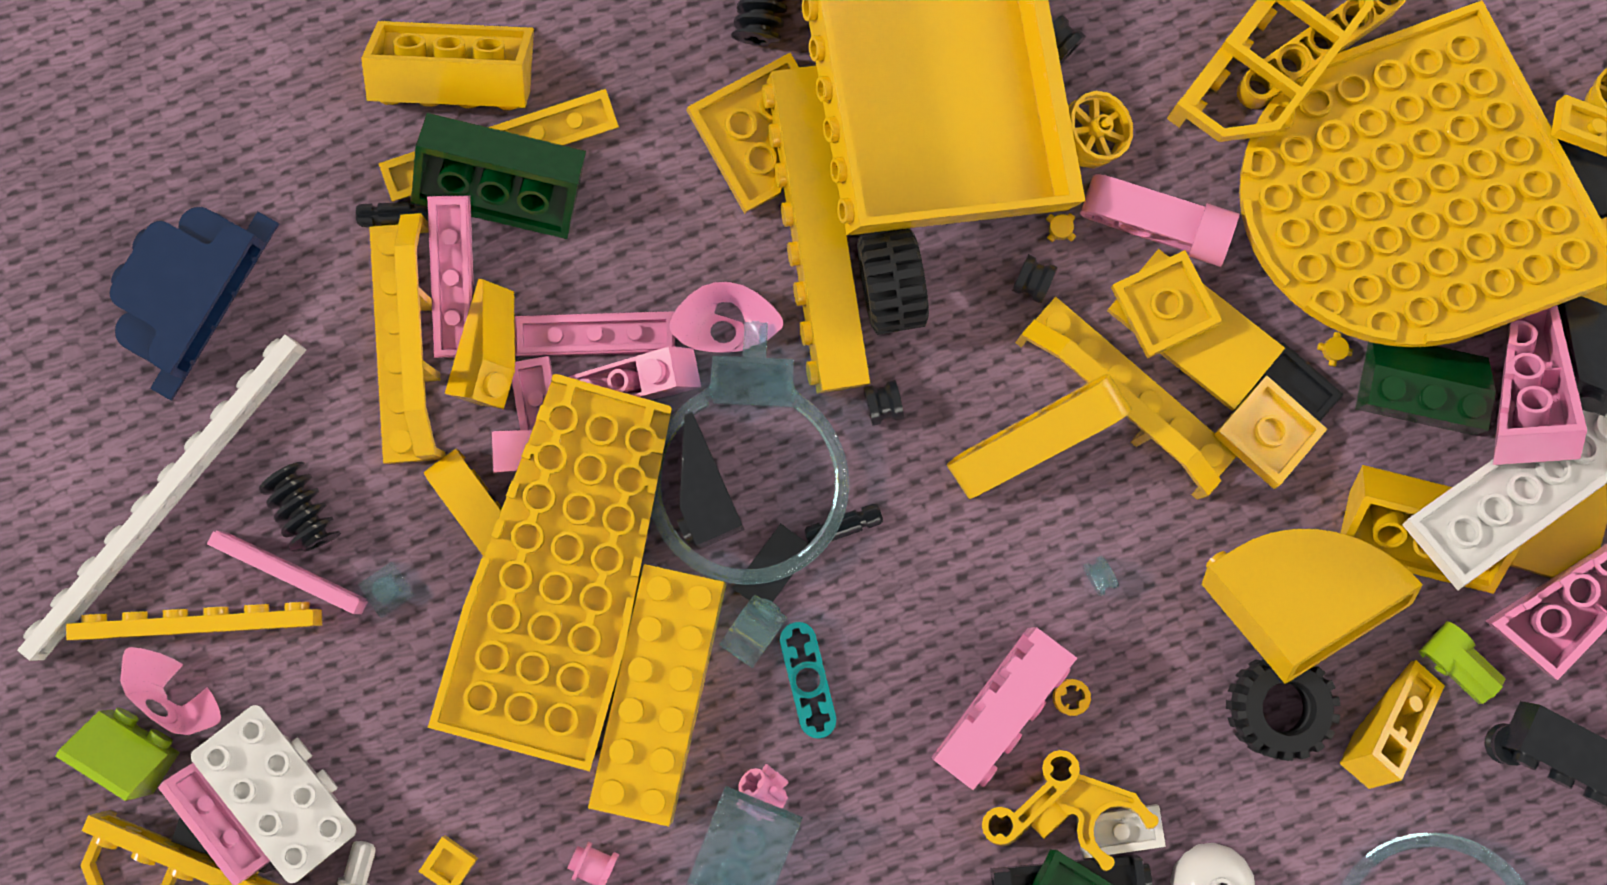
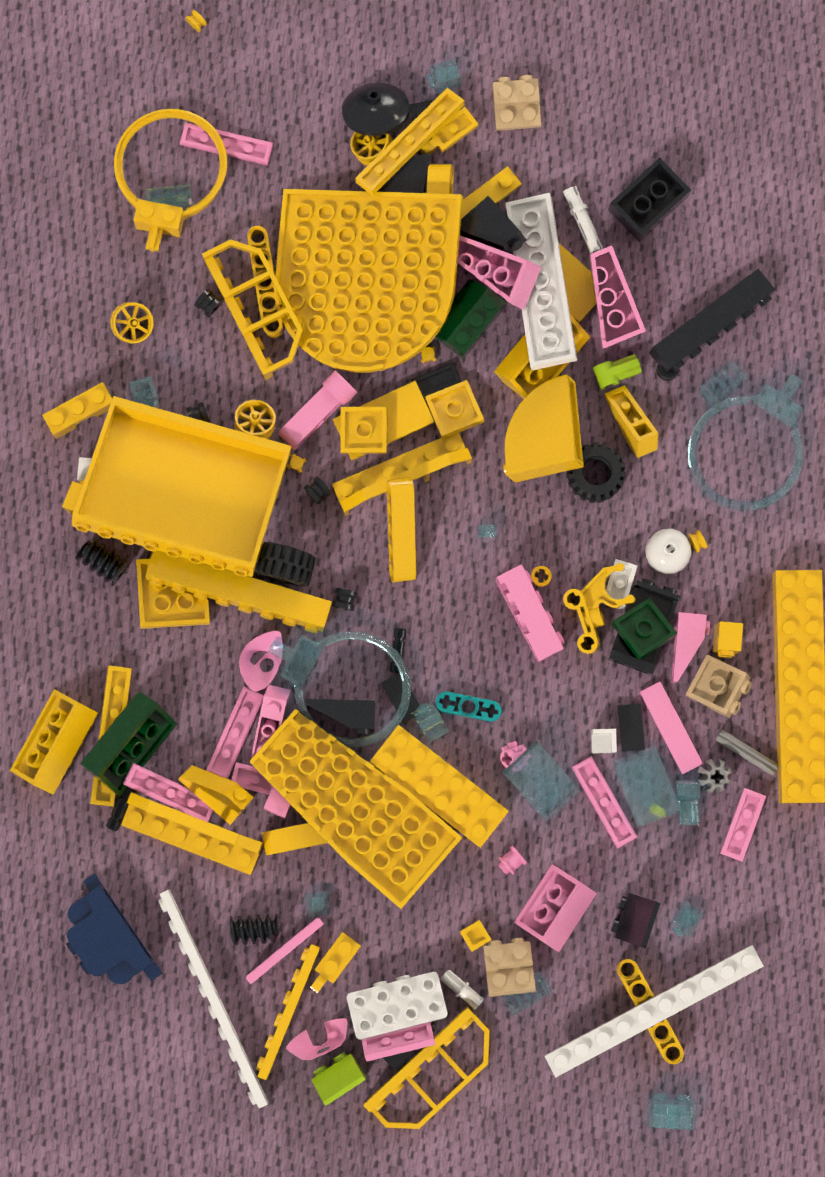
camera: 65 degrees left, 0 degrees up
(308, 659) = (335, 960): none -> yellow plate
(1502, 834) = (707, 389): none -> clear light blue slope

